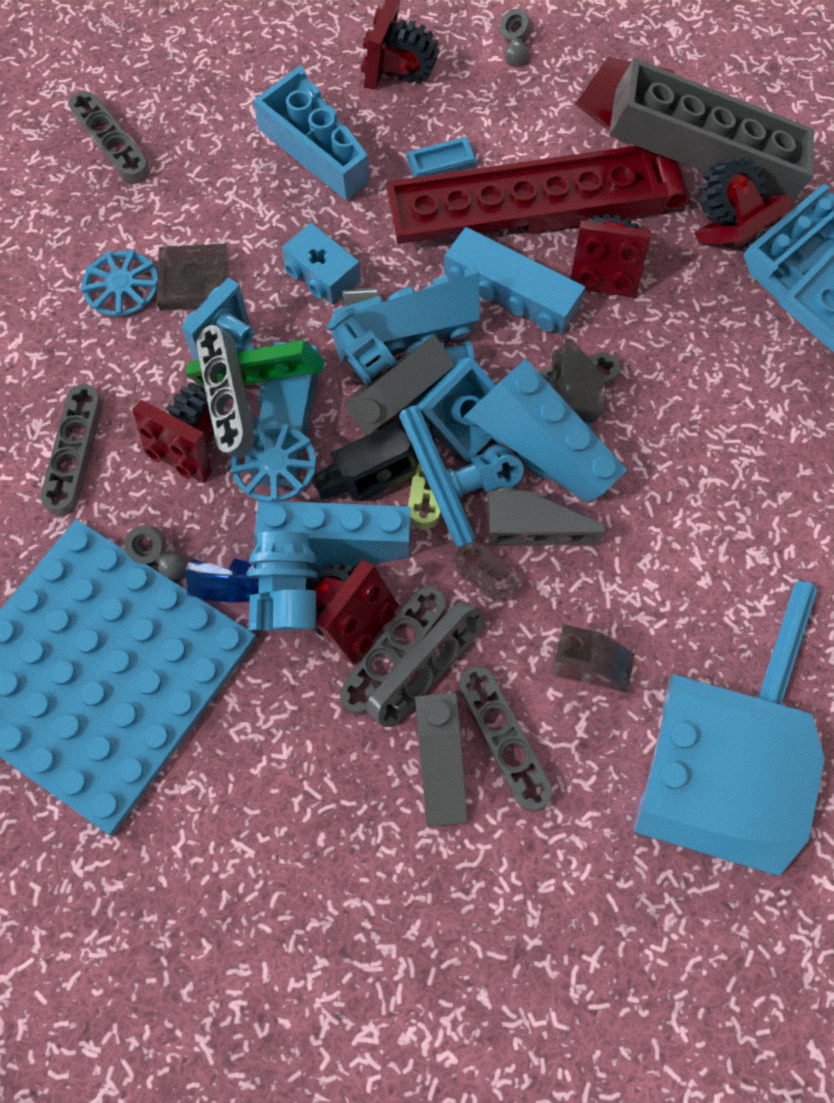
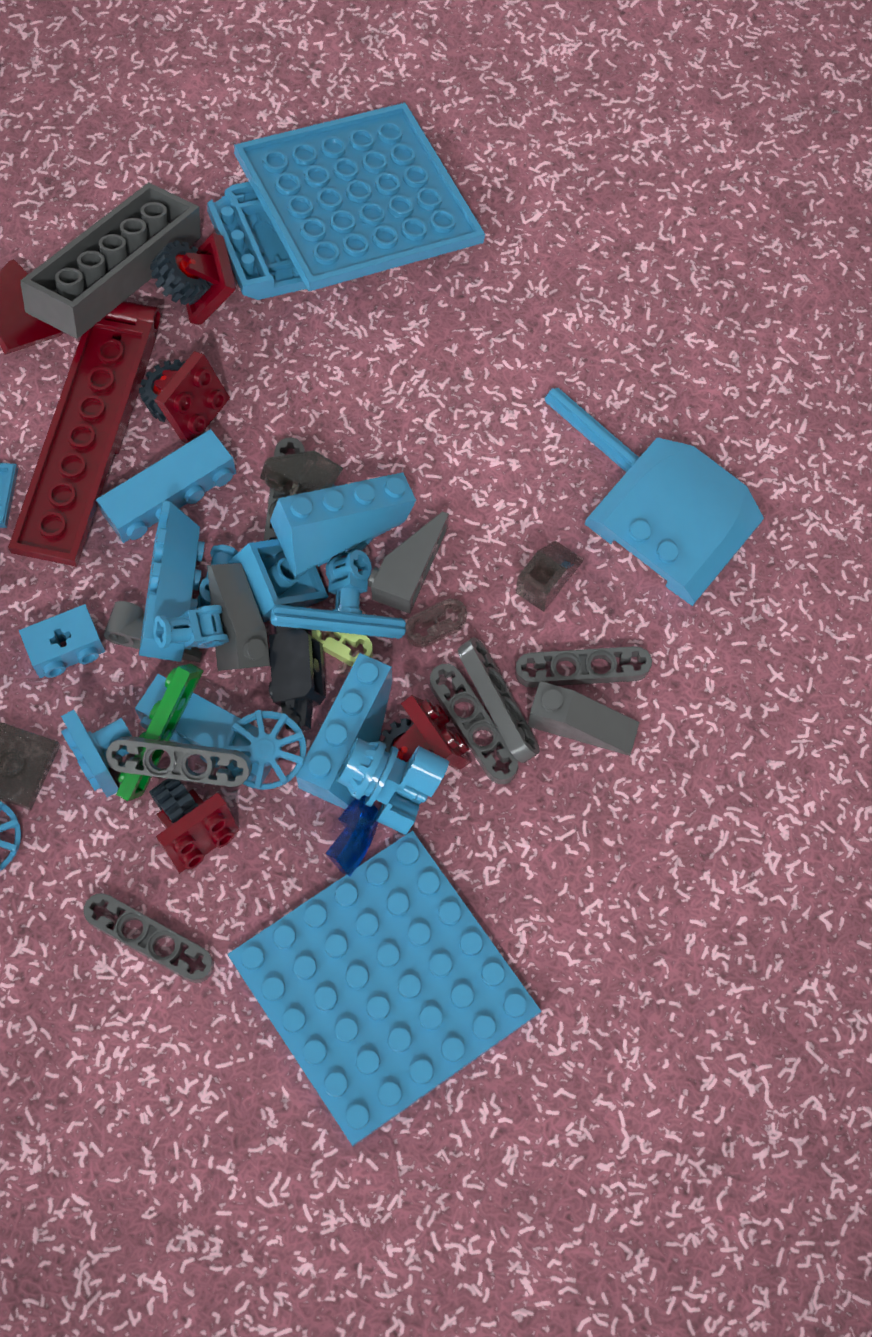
camera: 70 degrees left, 0 degrees up
(169, 564) = (310, 884): dark grey plate -> none

